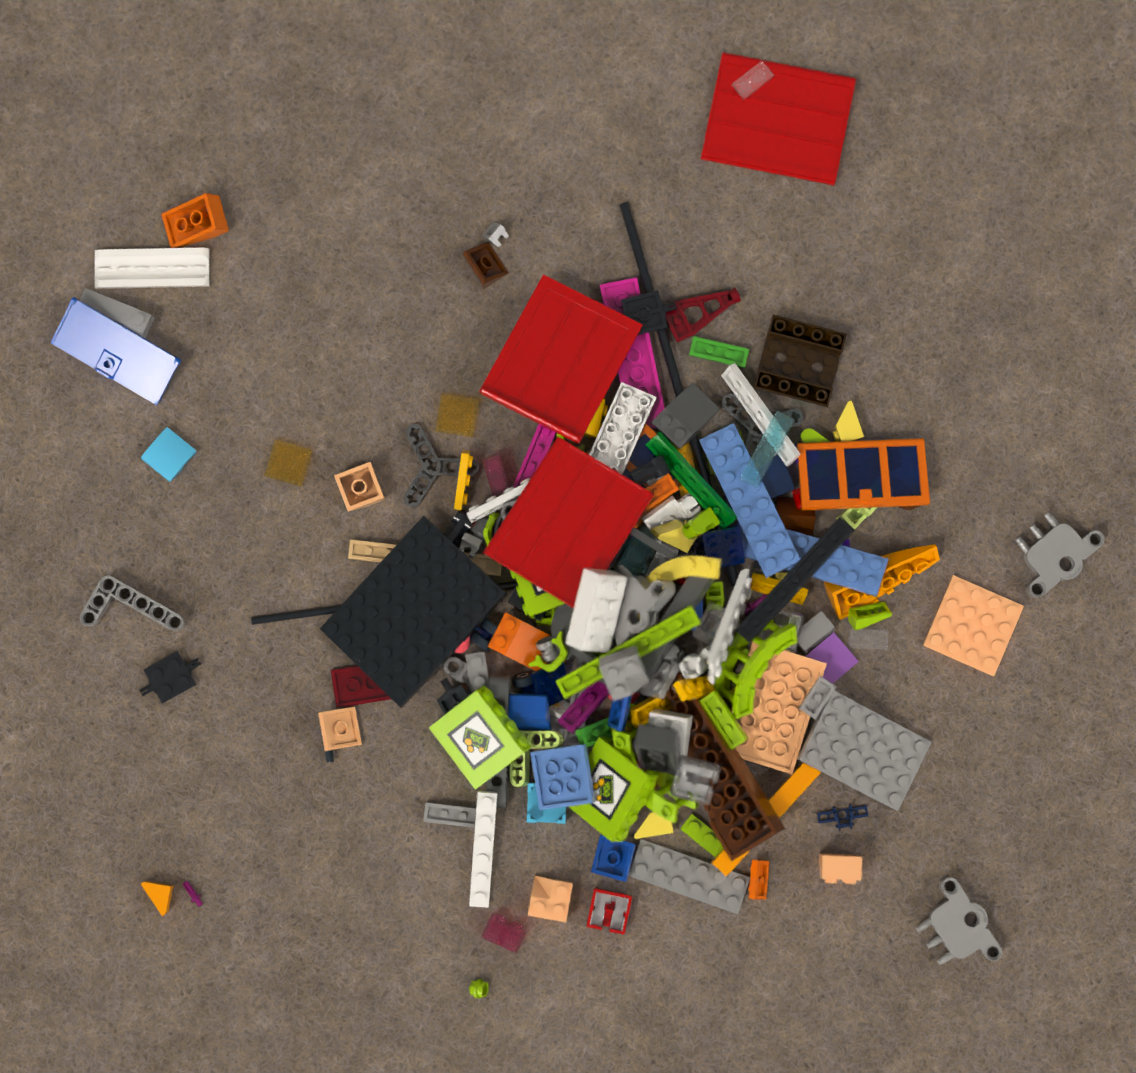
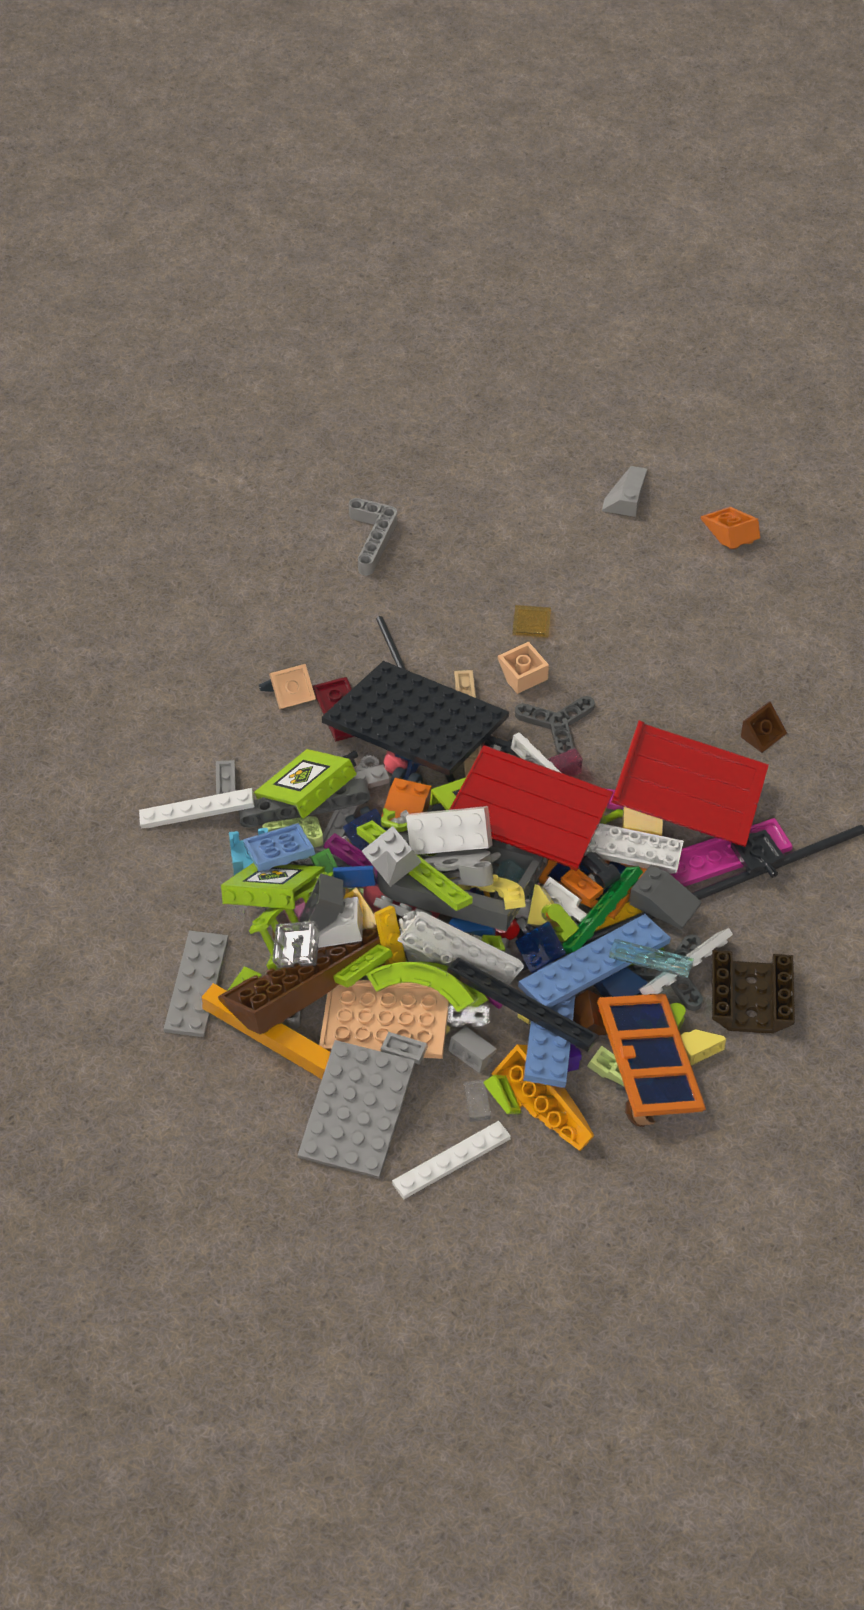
camera: 80 degrees right, 35 degrees down
(115, 351) = (597, 490): door -> none
(151, 268) = (680, 507): white plate -> none
(159, 894) = (114, 589): light orange slope -> none
(168, 454) = (516, 538): medium azure slope -> none
(170, 677) = (315, 570): black plate -> none
(195, 898) = (117, 615): magenta piece -> none
(457, 415) = (612, 733): clear yellow tile -> none
(463, 479) = (554, 737): yellow plate -> none
(478, 988) = (59, 828): lime plate -> none
(494, 232) = (797, 732): light grey tile -> none
(504, 933) = (116, 838): clear pink brick -> none
(530, 711) = (337, 818): blue slope -> none
(550, 898) = (155, 869): light nougat slope -> none
(609, 910) = (151, 917): piece -> none
(613, 858) = (205, 914): blue slope -> none
(653, 826) = (246, 945): light yellow slope -> none
(678, 322) = (764, 885): dark red plate -> none
(718, 352) = (740, 925): bright green plate -> none
(759, 879) = (202, 1040): orange plate -> none
(766, 585) = (509, 1019): yellow plate -> none
(836, 656) = (448, 1073): medium lavender tile -> none
(836, 816) = (282, 1113): dark blue piece -> none
(840, 867) = (227, 1105): light nougat slope -> none
(923, 674) = (451, 1160): none -> white plate
(949, 924) = (176, 1225): light grey piece -> none
(973, 625) = (515, 1199): light nougat plate -> none
(1050, 548) = (618, 1256): light grey piece -> none

